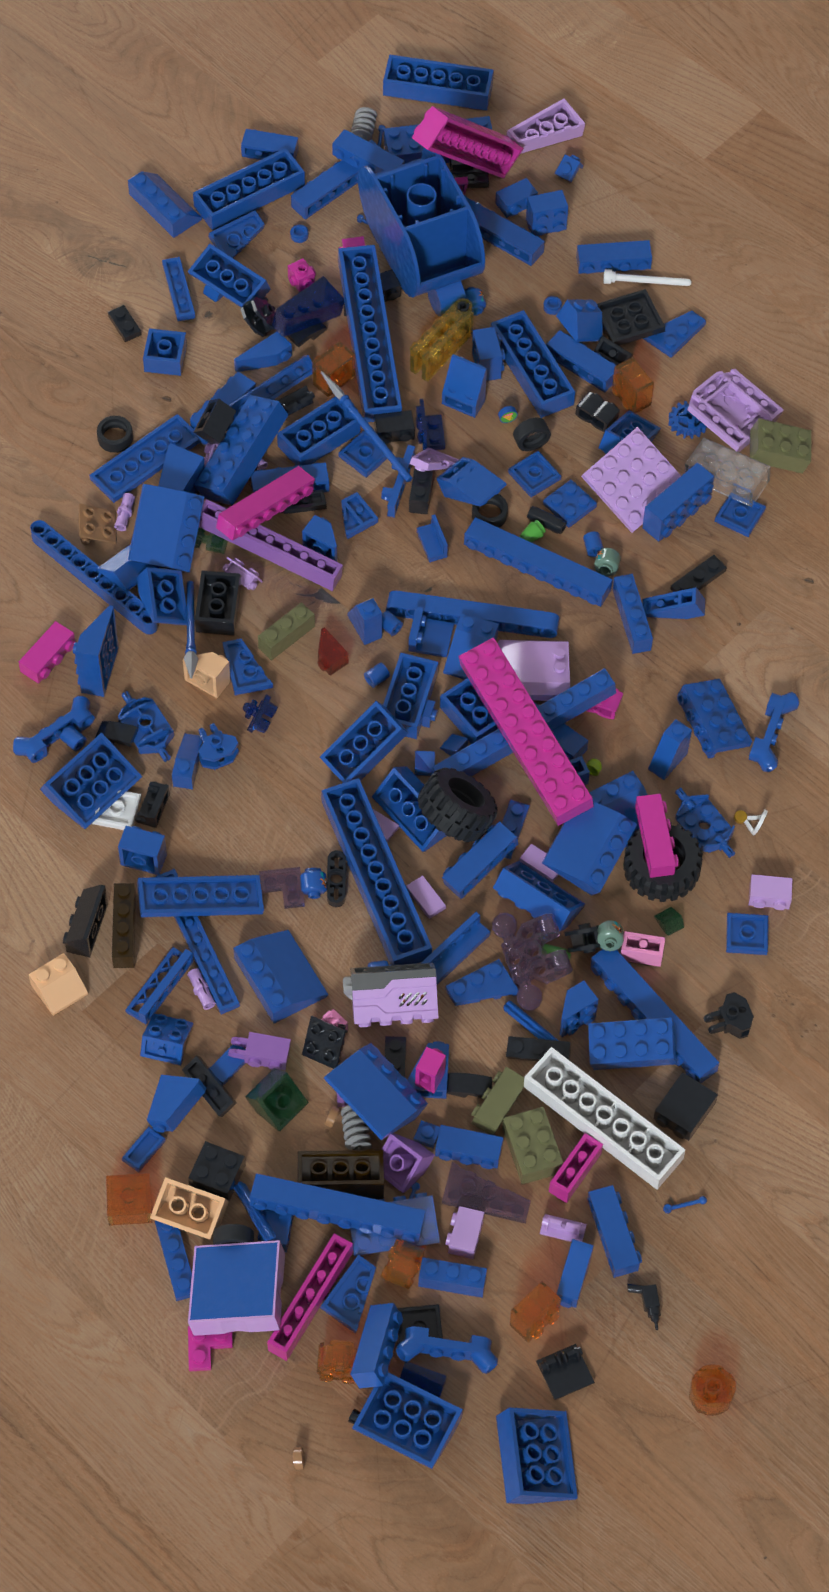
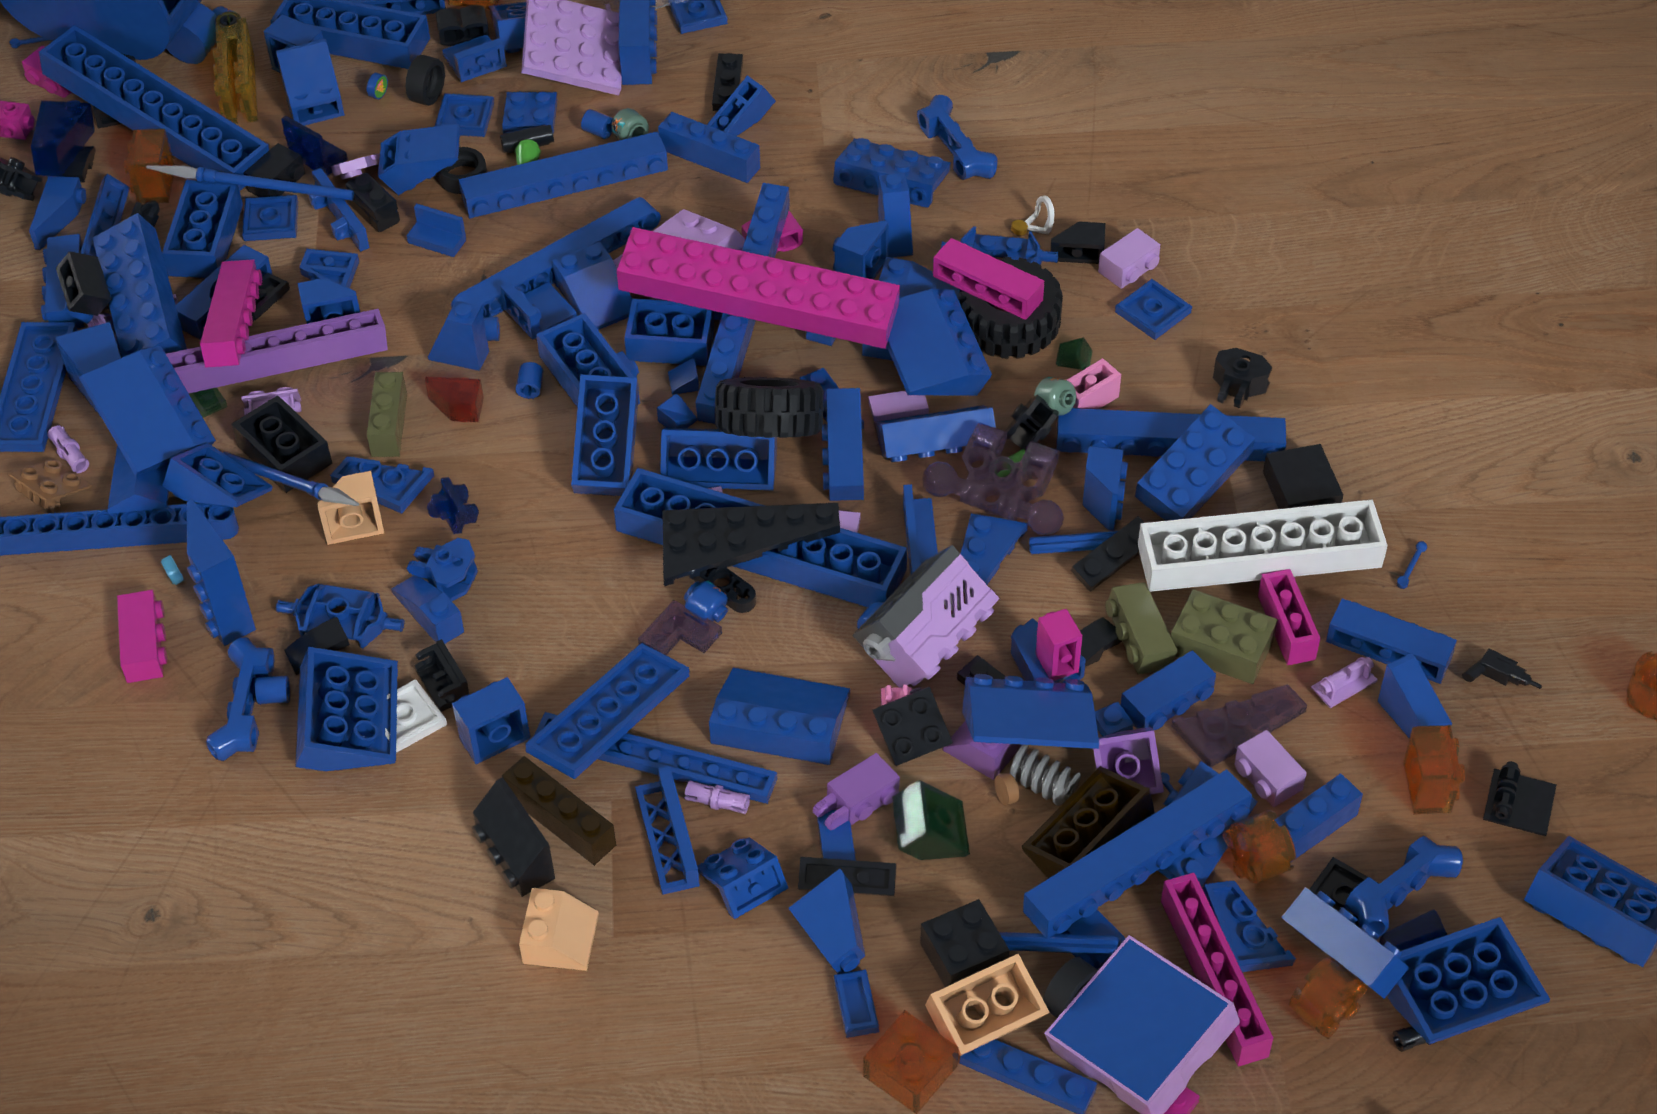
camera: 45 degrees left, 10 degrees down
(357, 860) = (733, 535): none -> black wing
(580, 439) = (476, 57): none -> blue bracket
(623, 756) = (862, 250): none -> blue slope
(756, 857) = (1080, 243): none -> black slope

